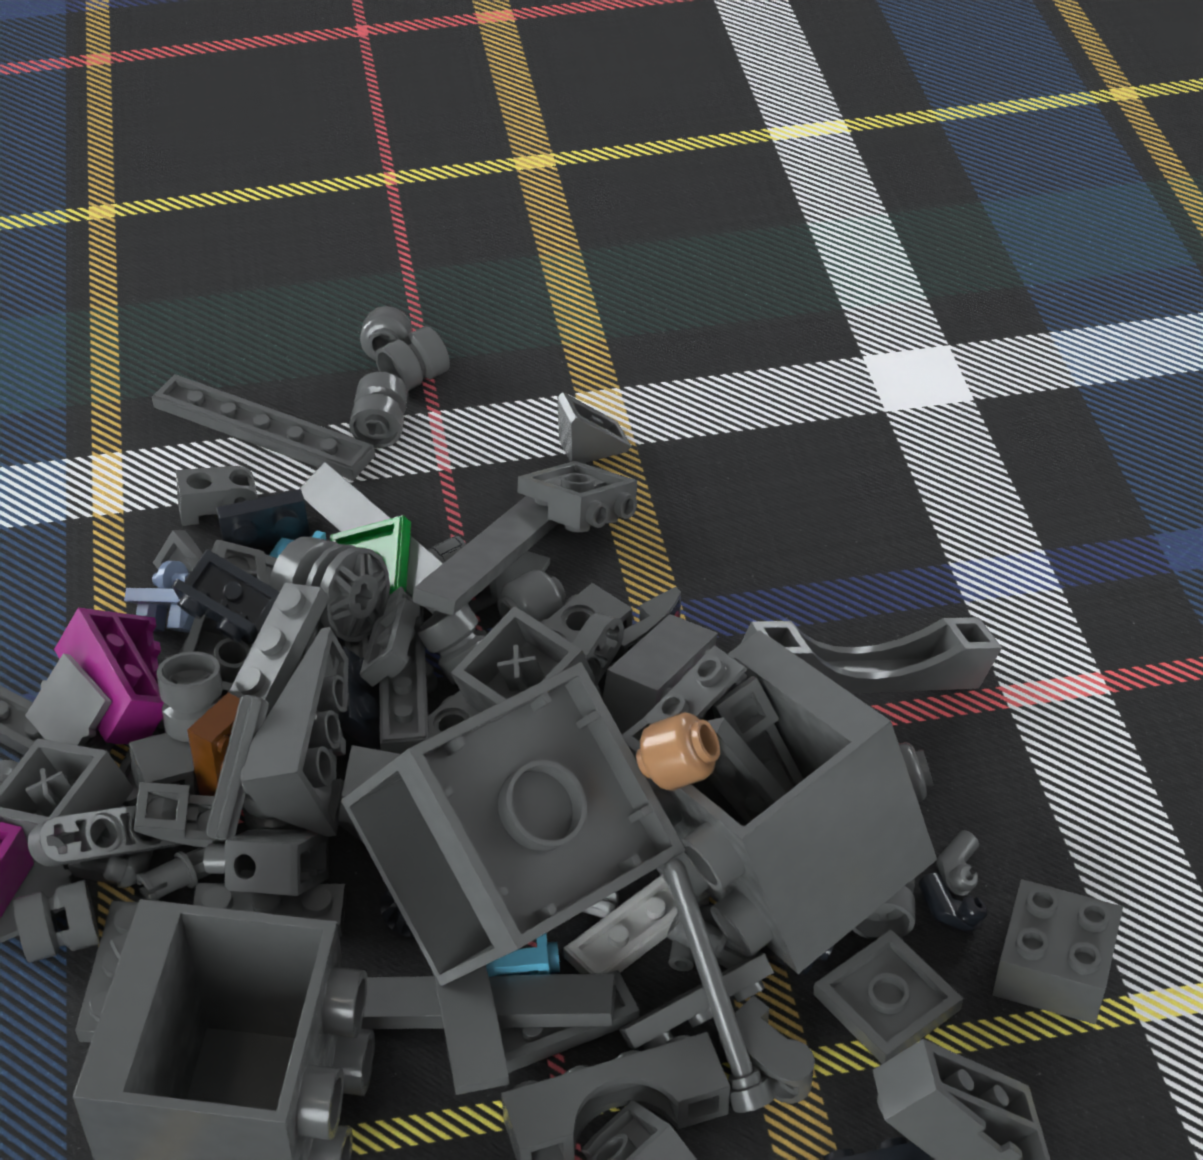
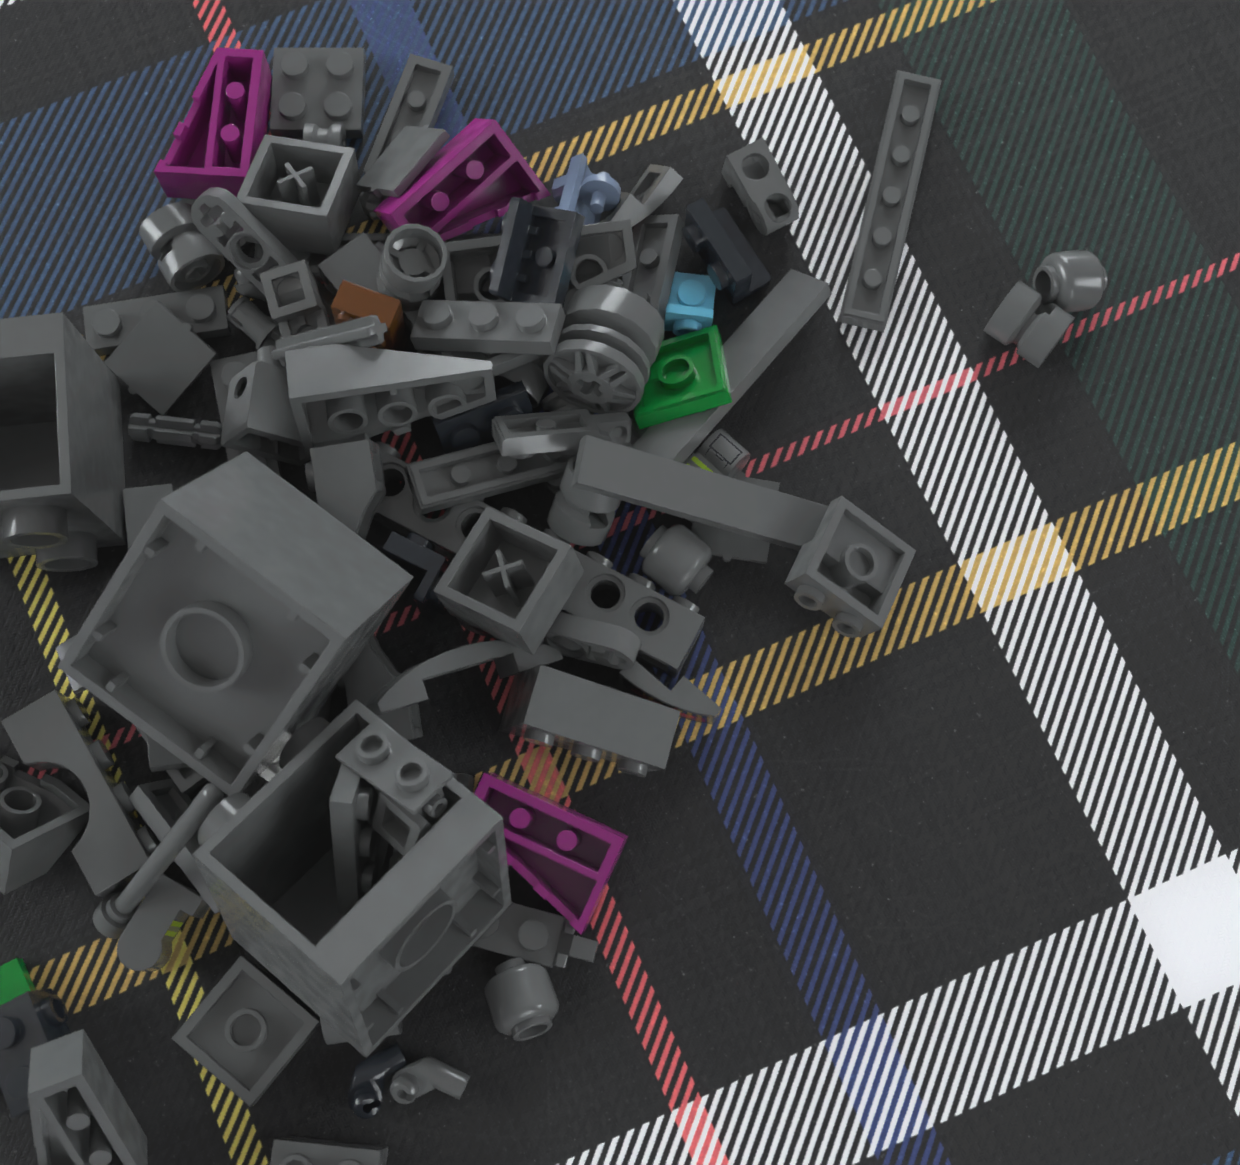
camera: 75 degrees right, 30 degrees up
(379, 409) = (940, 313): dark grey wheel -> none
(587, 432) = (970, 557): dark grey slope -> none
(678, 751) = (292, 766): medium nougat head -> none
(939, 657) = (630, 942): dark grey arch -> none

